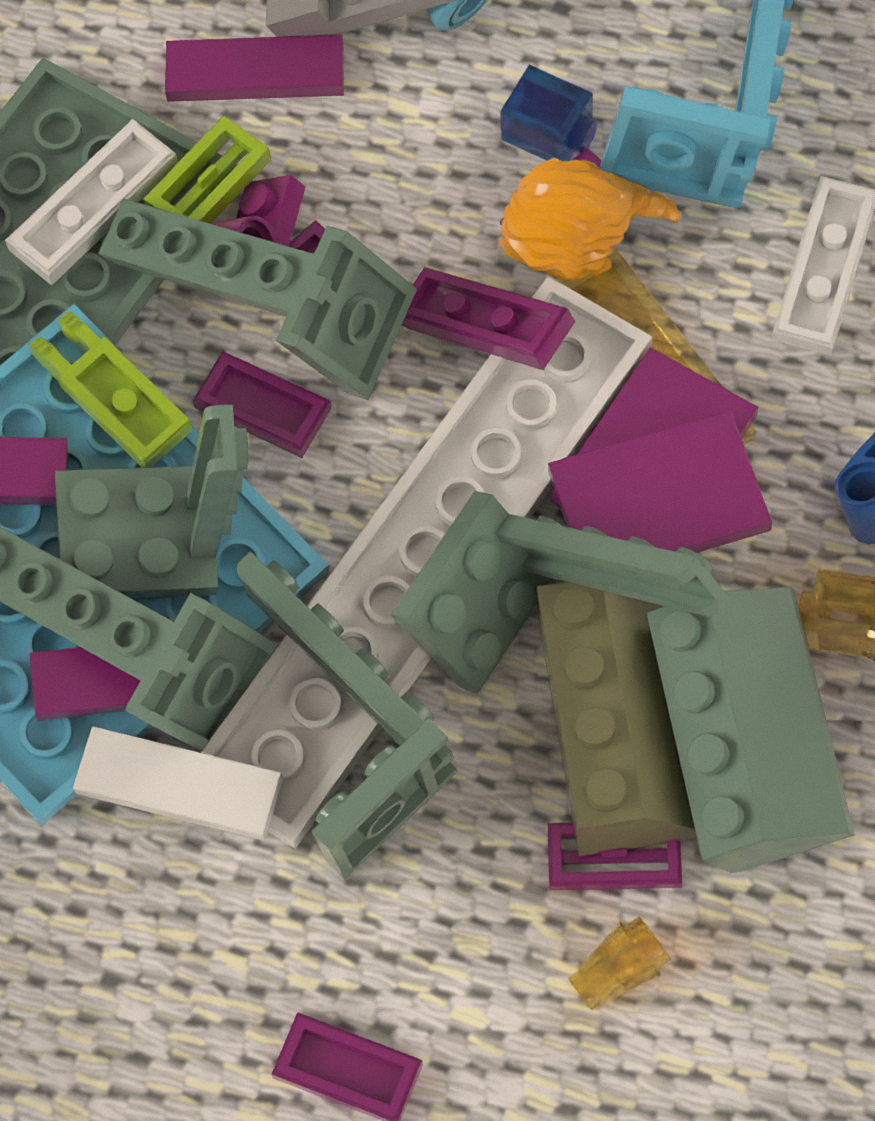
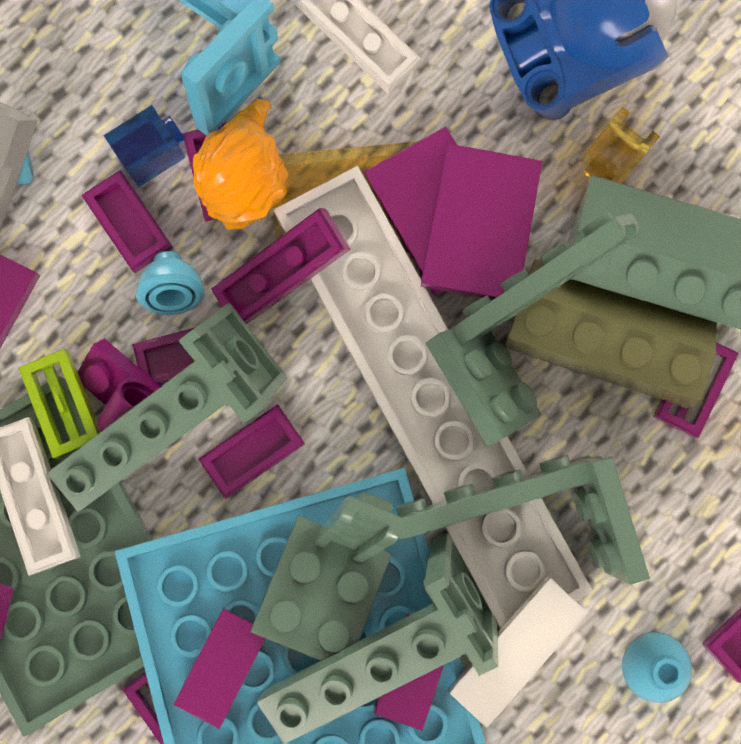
camera: 70 degrees left, 15 degrees up
(114, 393) = (207, 557): lime hinge -> none
(242, 974) = (656, 667): none -> medium azure brick
(402, 220) = (169, 285): none -> medium azure brick
(452, 147) = (127, 221): none -> magenta tile

